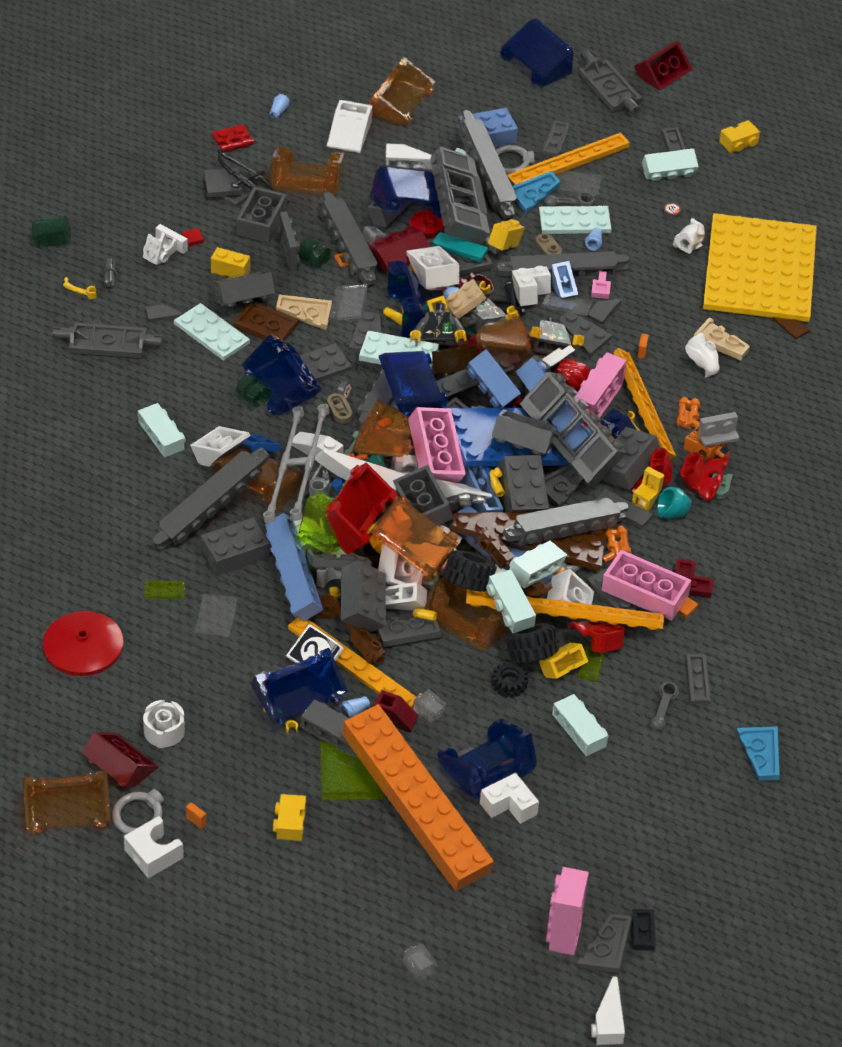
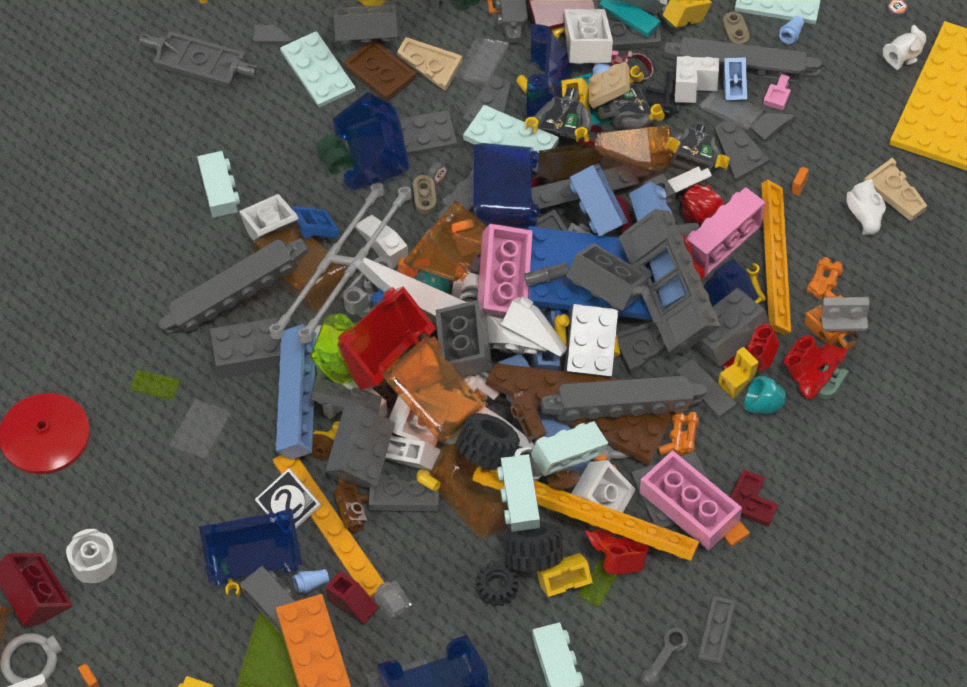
camera: 20 degrees right, 10 degrees up
(473, 438) = (546, 274): none -> dark grey axle
(473, 477) = (530, 323): none -> white slope

